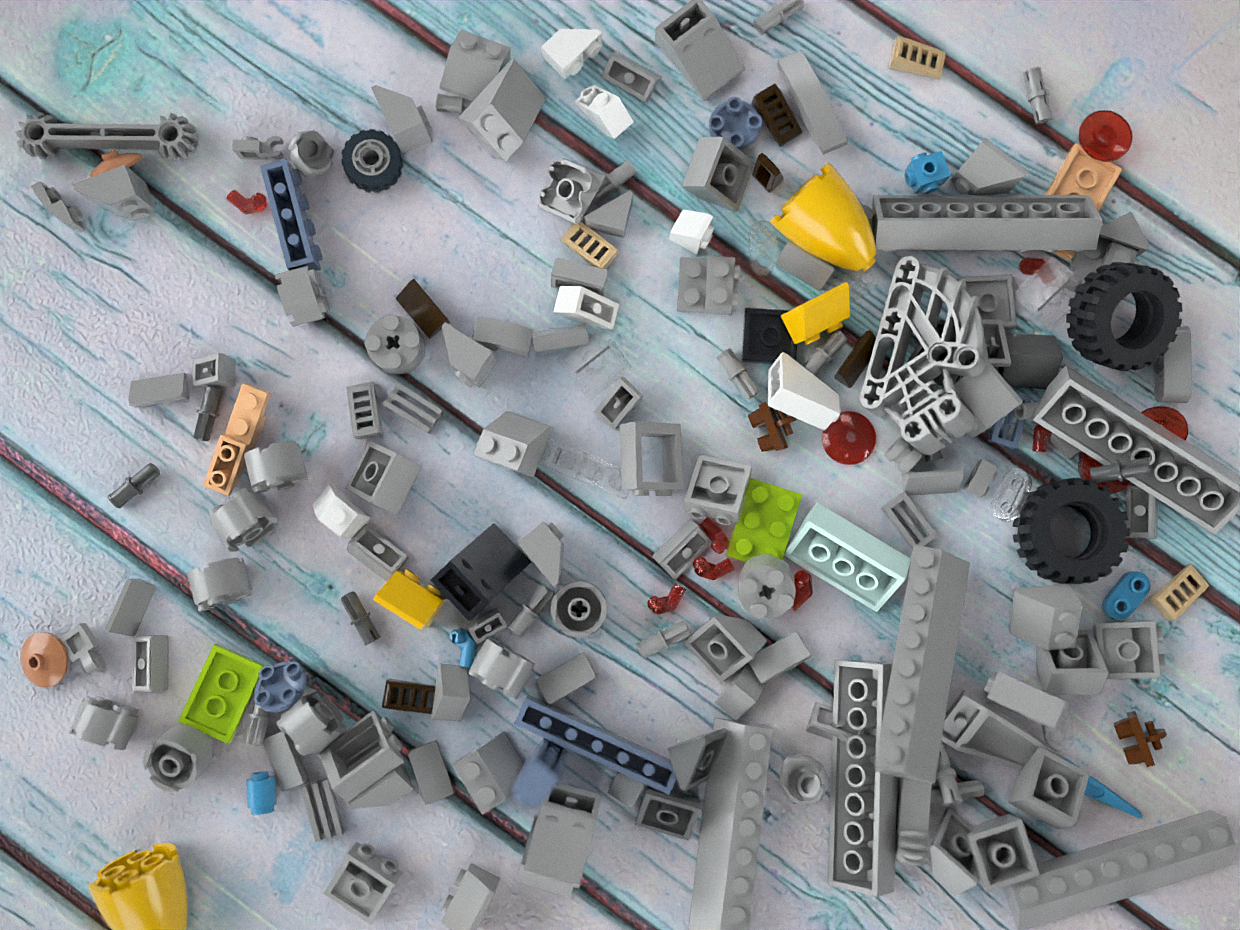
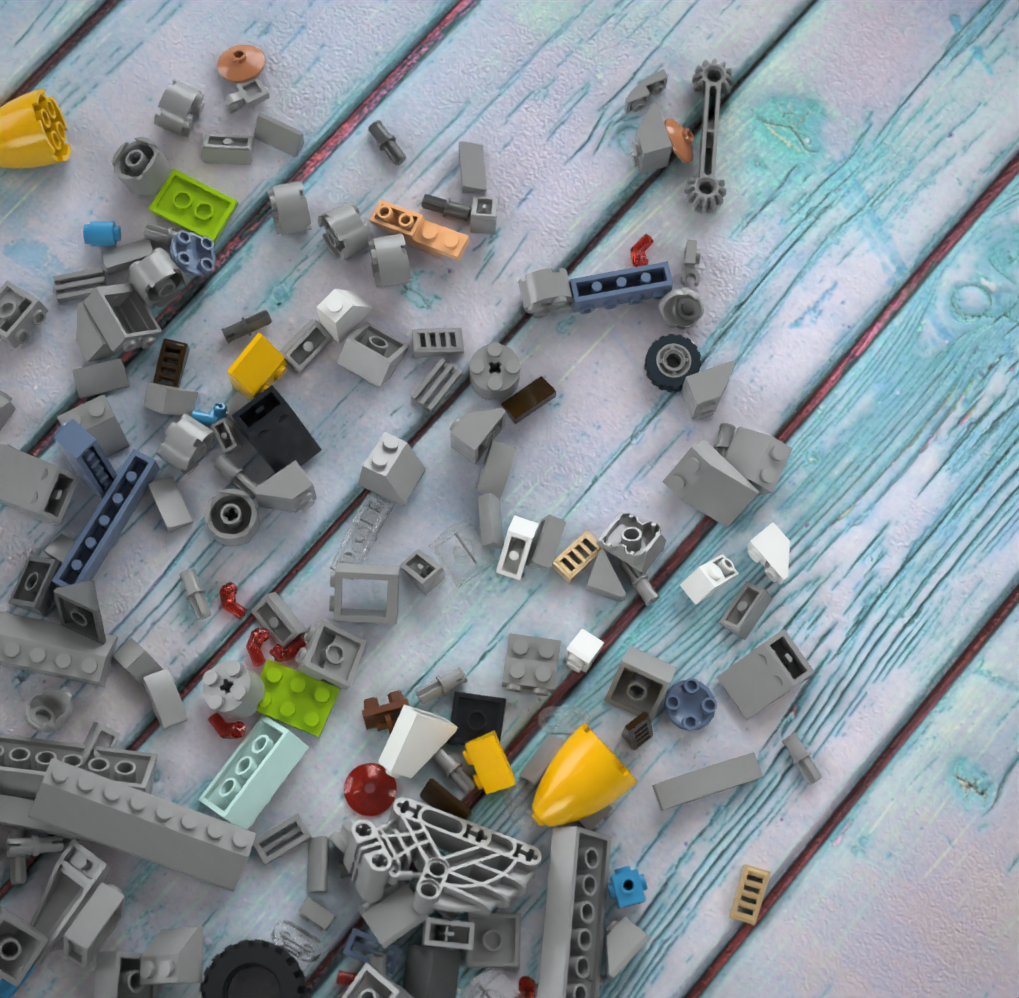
camera: 90 degrees right, 10 degrees down
(725, 644) = (184, 650): light grey slope -> none
(784, 110) = (717, 736): dark brown slope -> none

